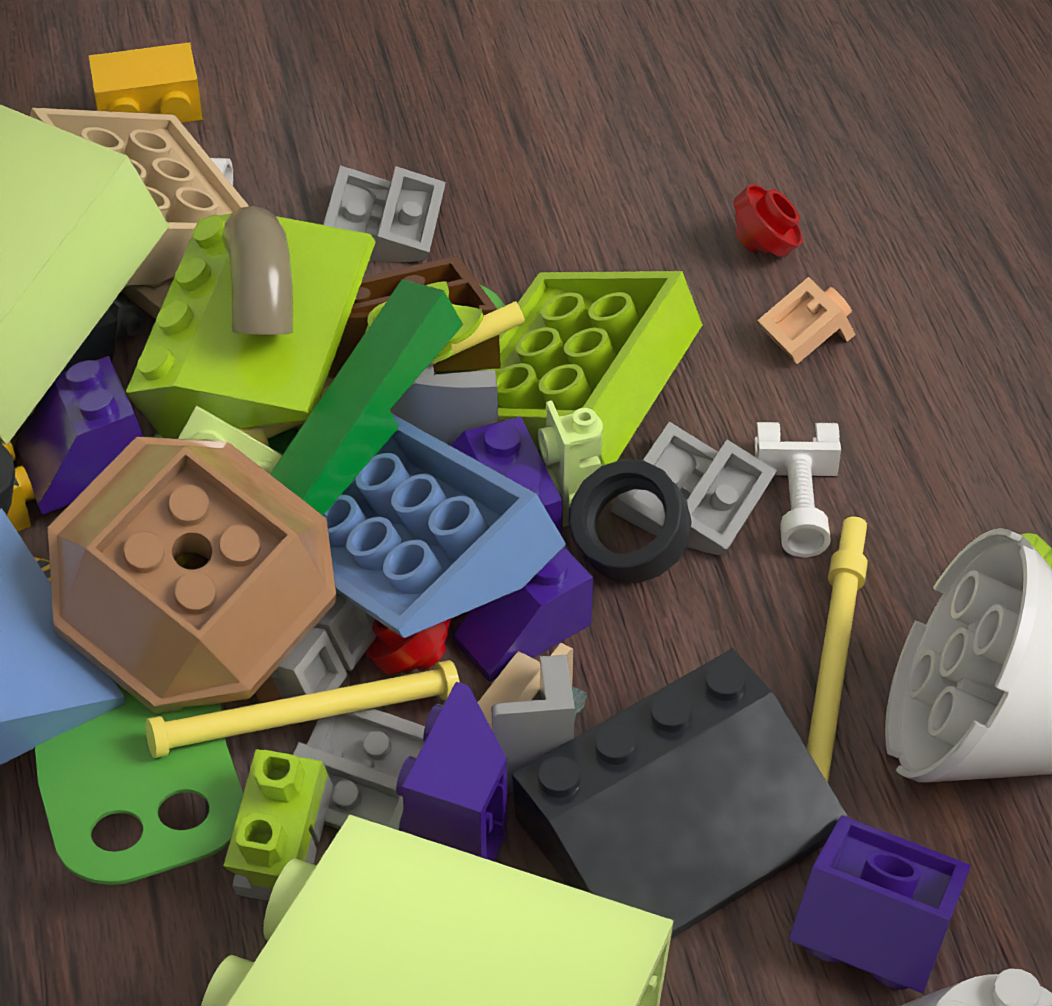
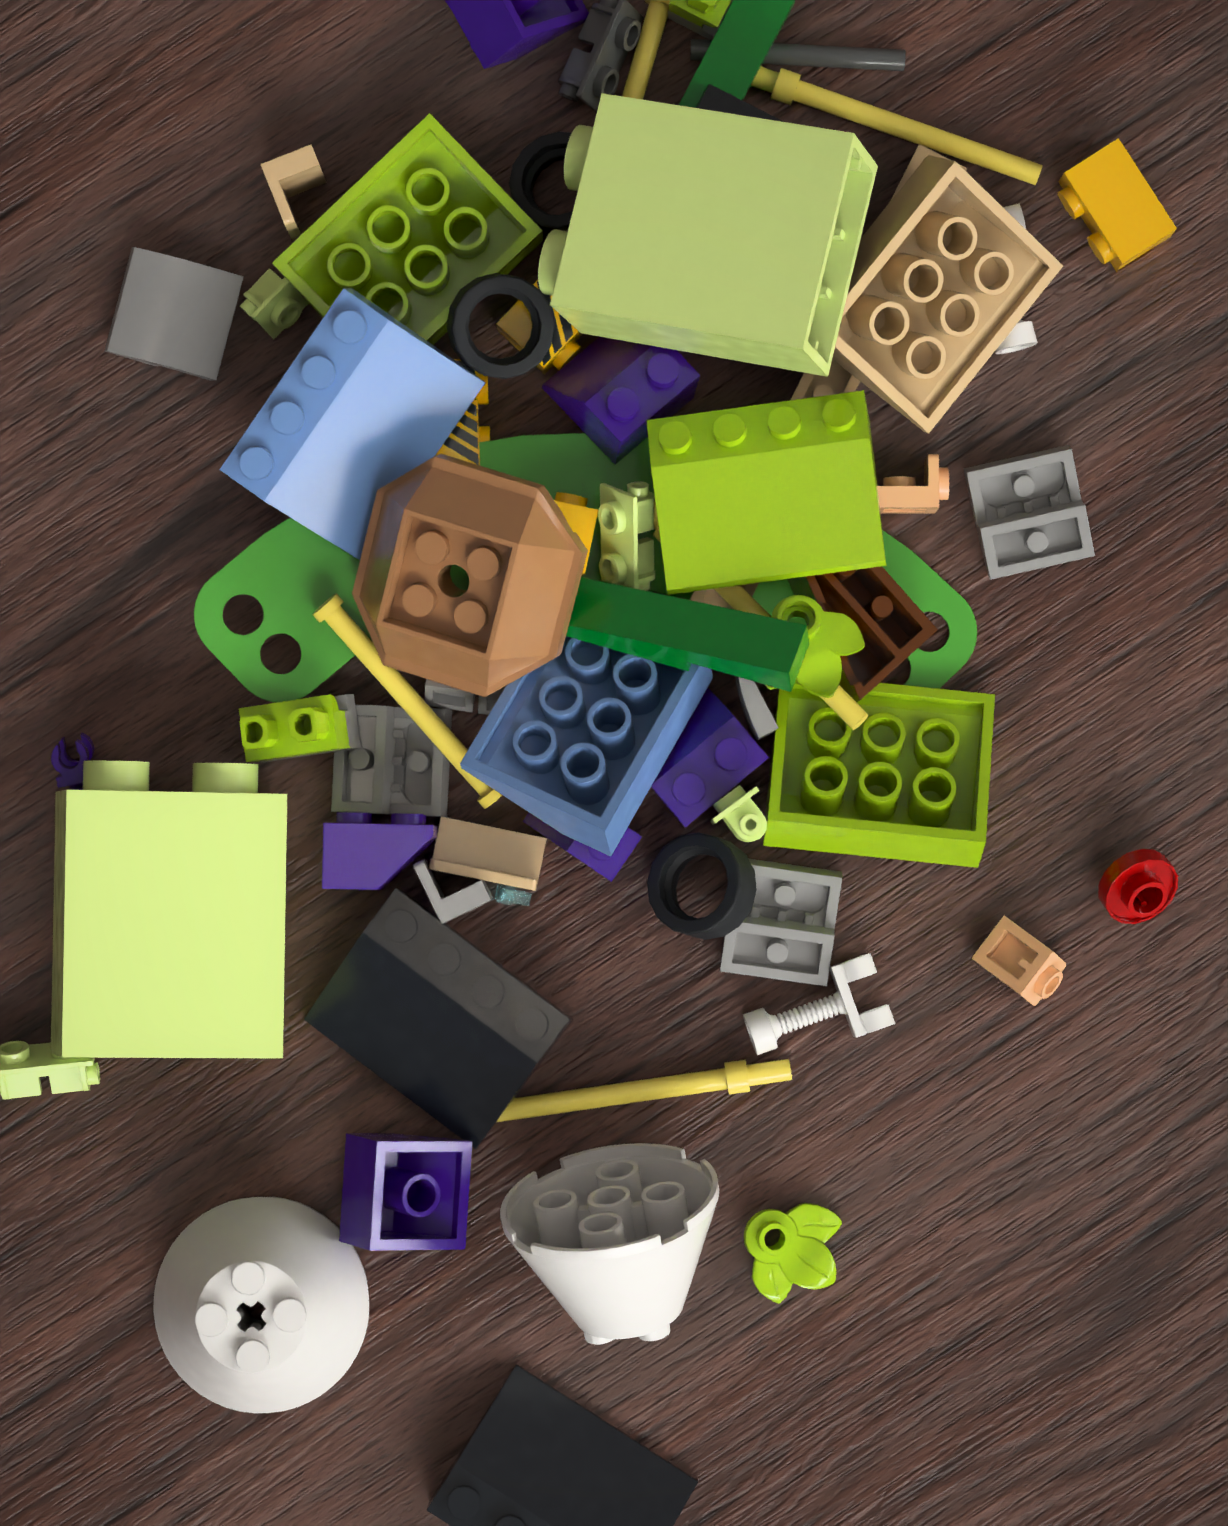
camera: 70 degrees right, 40 degrees up
(259, 272) = (772, 496): dark tan cylinder -> none

